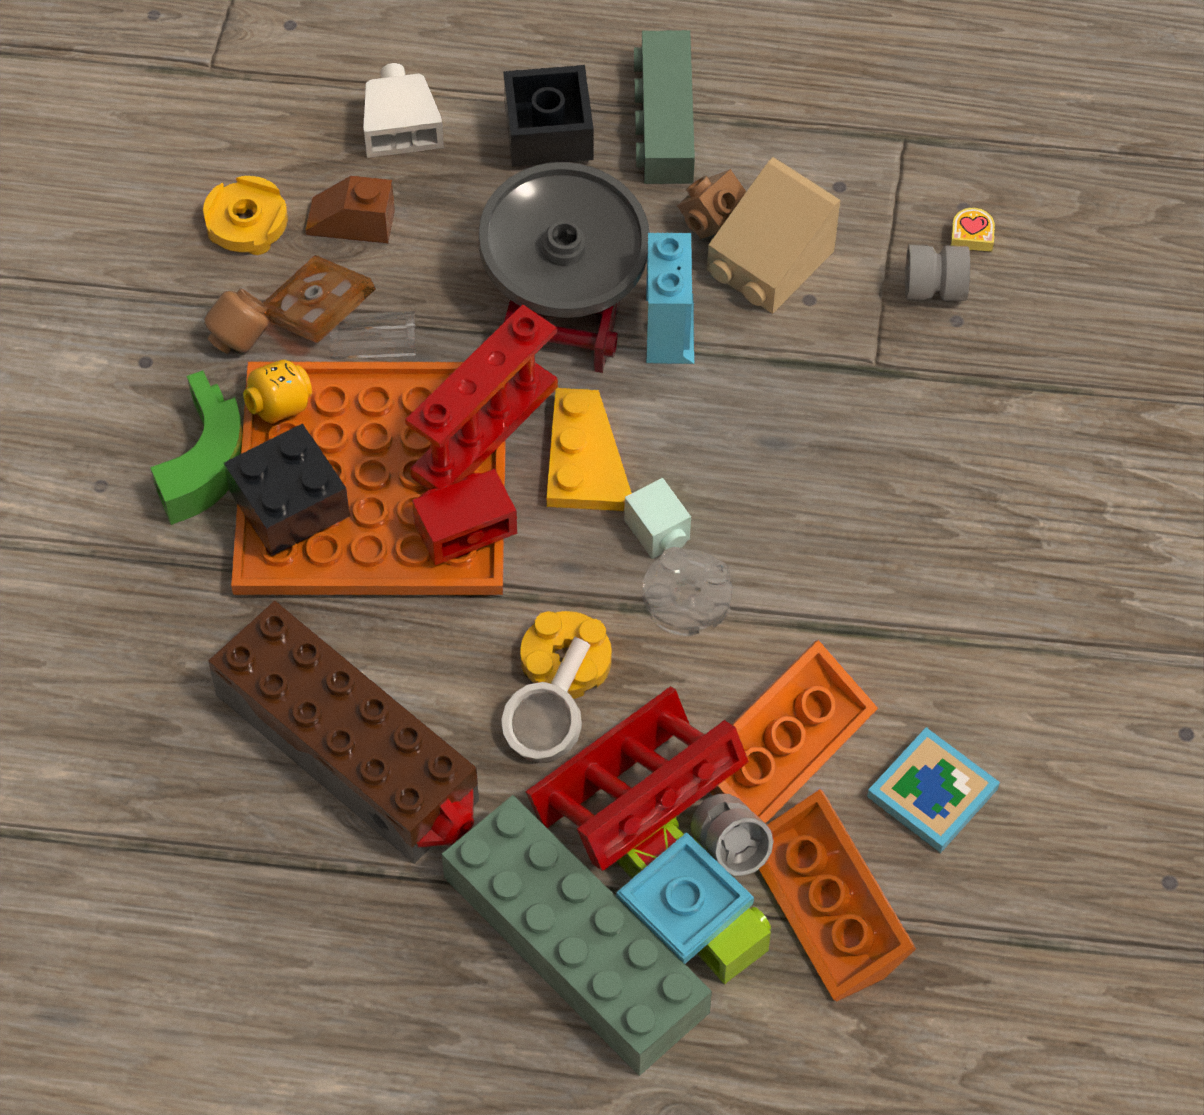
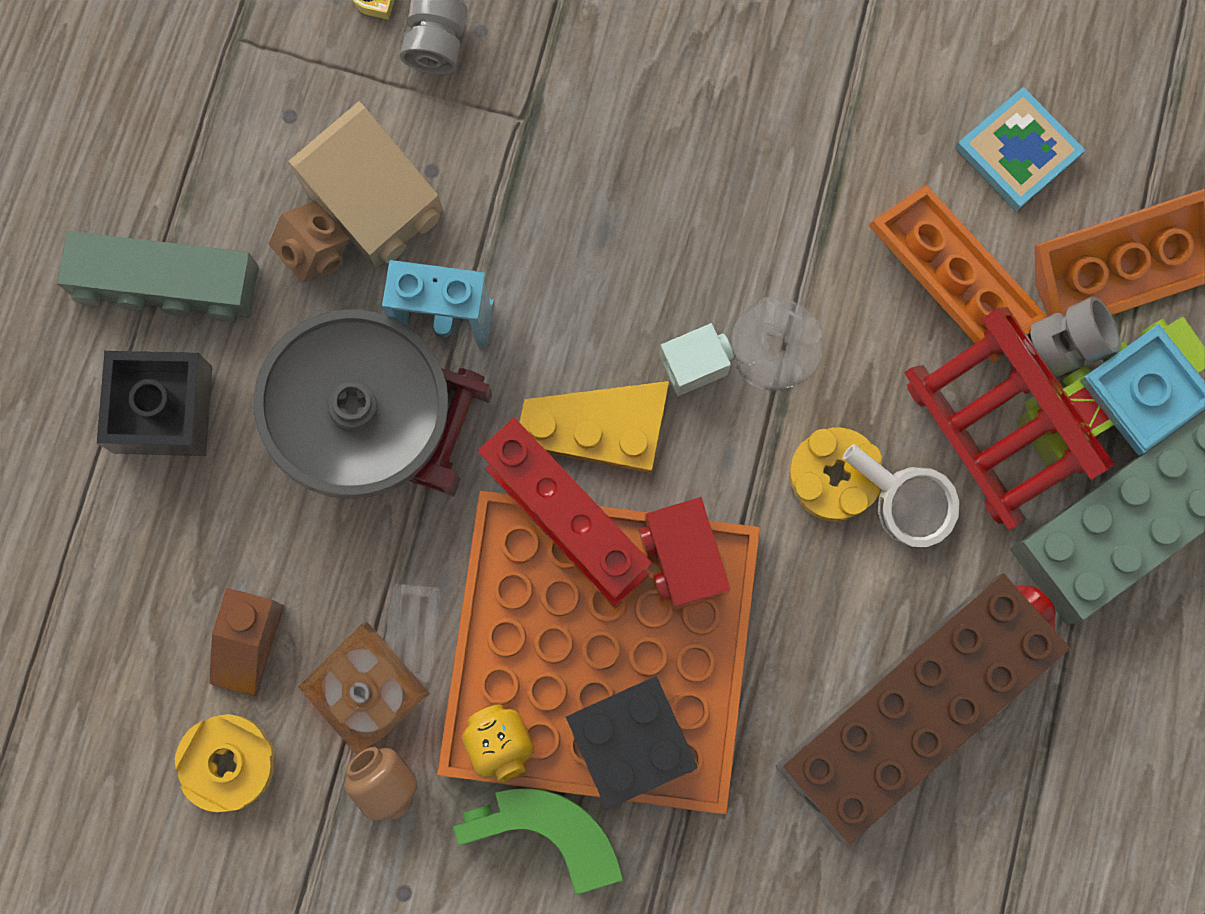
camera: 80 degrees left, 20 degrees up
(400, 114) = (112, 571): white torso -> none

